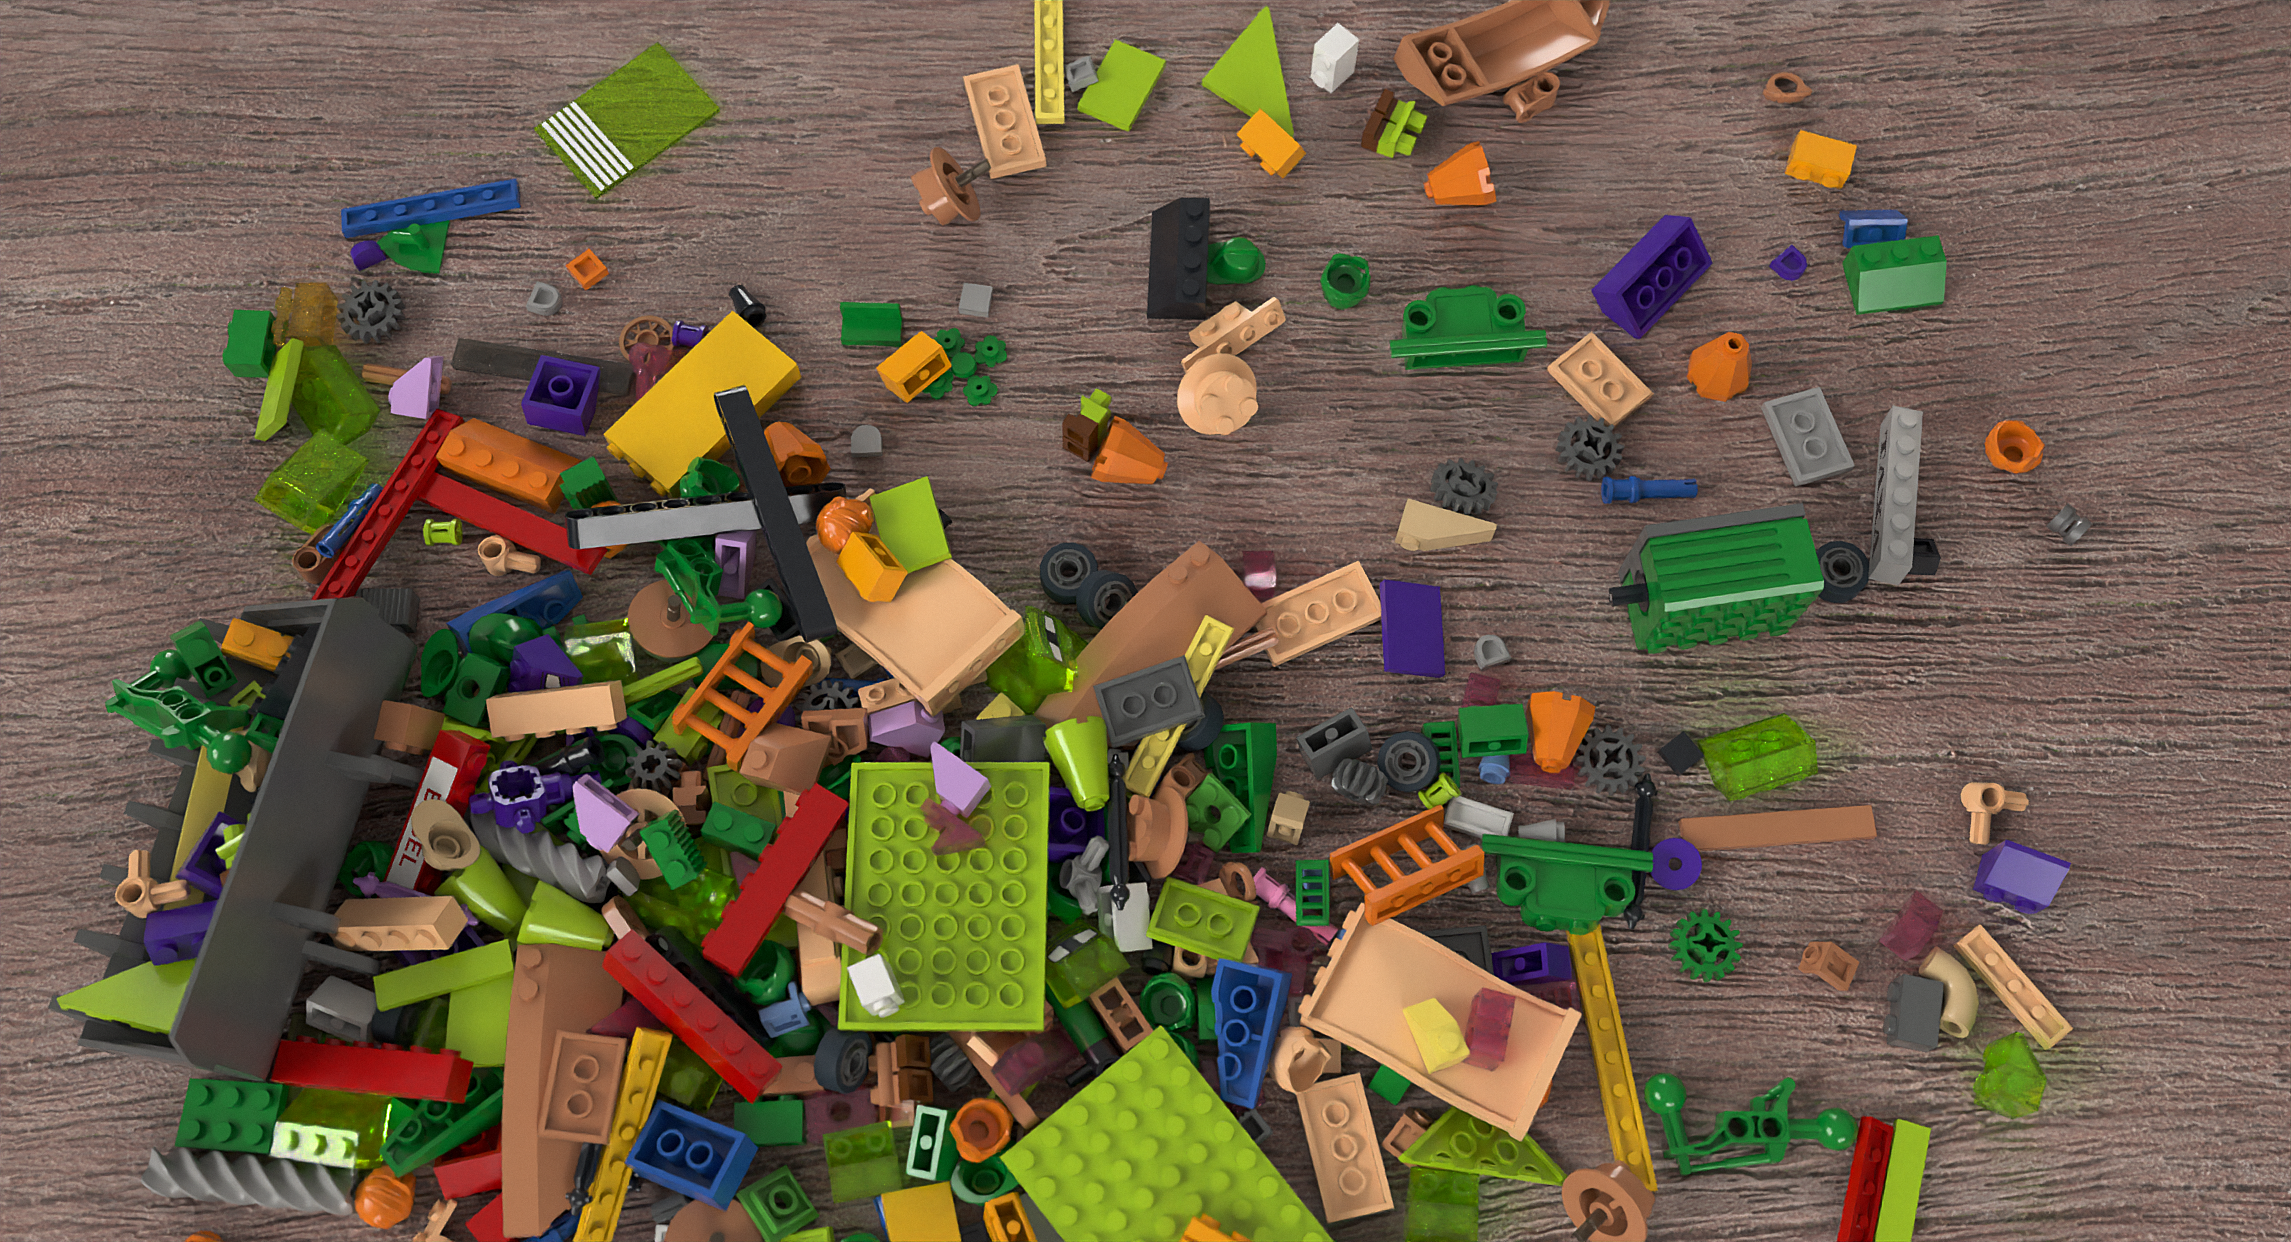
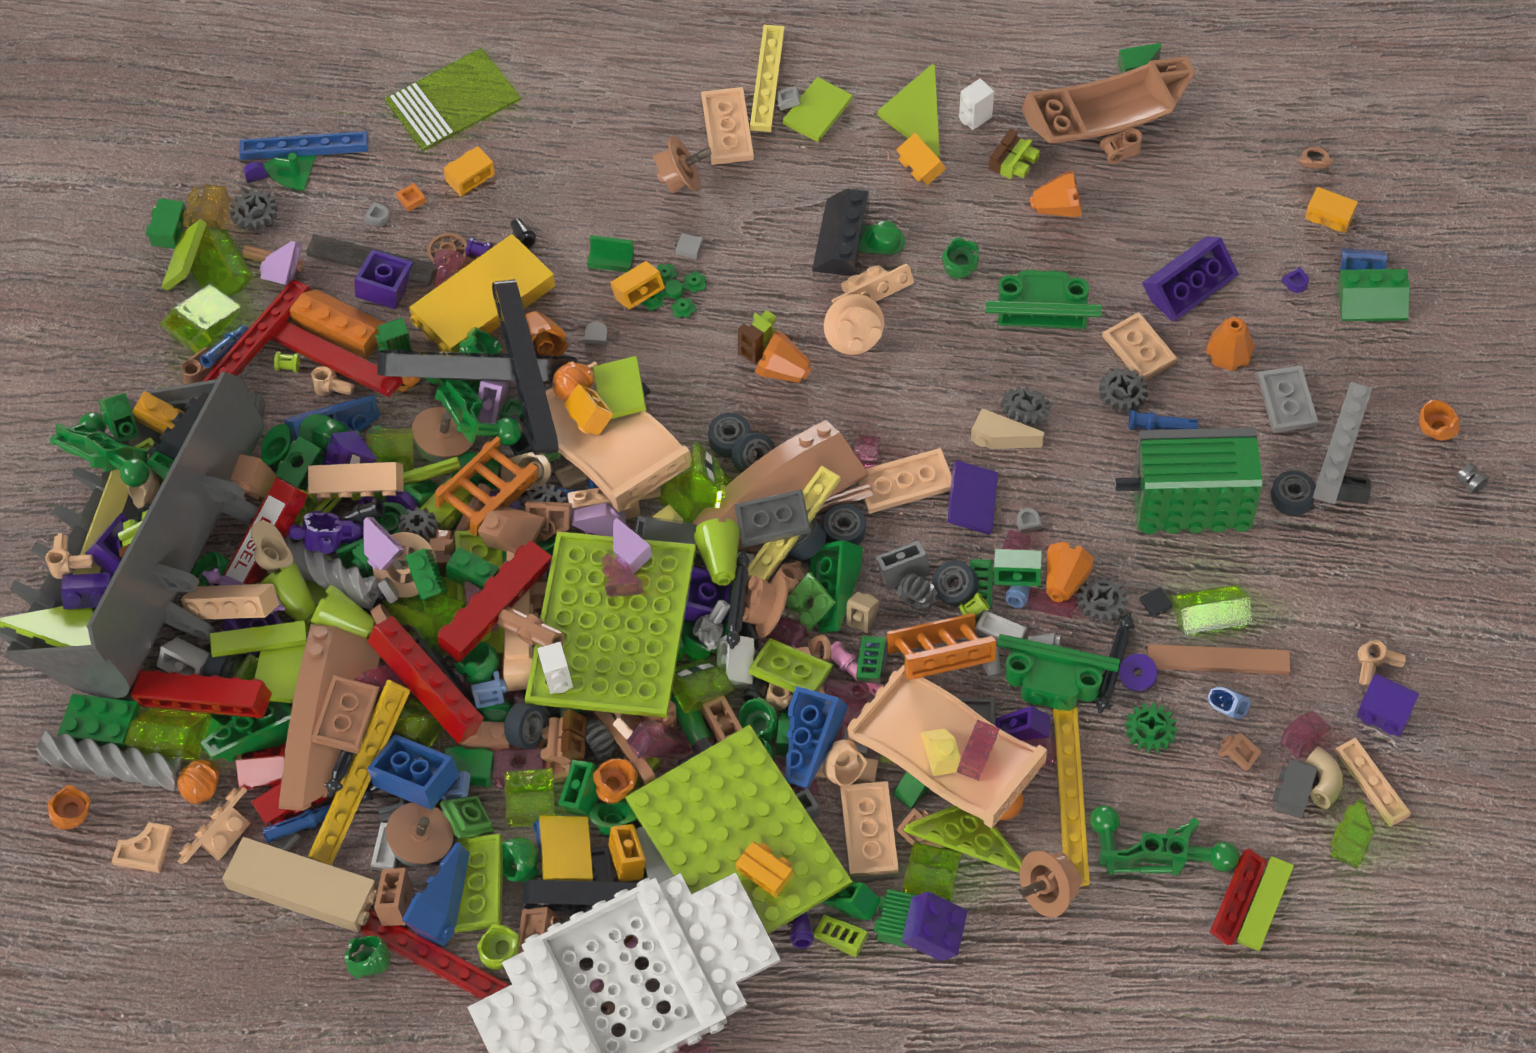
camera: 10 degrees right, 10 degrees down
(662, 222) = (469, 171): none -> light orange brick
(762, 1164) = (459, 787): none -> medium blue bracket
(763, 568) = (510, 408): none -> green tile
(1250, 676) = (844, 515): none -> wheel
(1803, 893) = (1229, 702): none -> medium blue rock

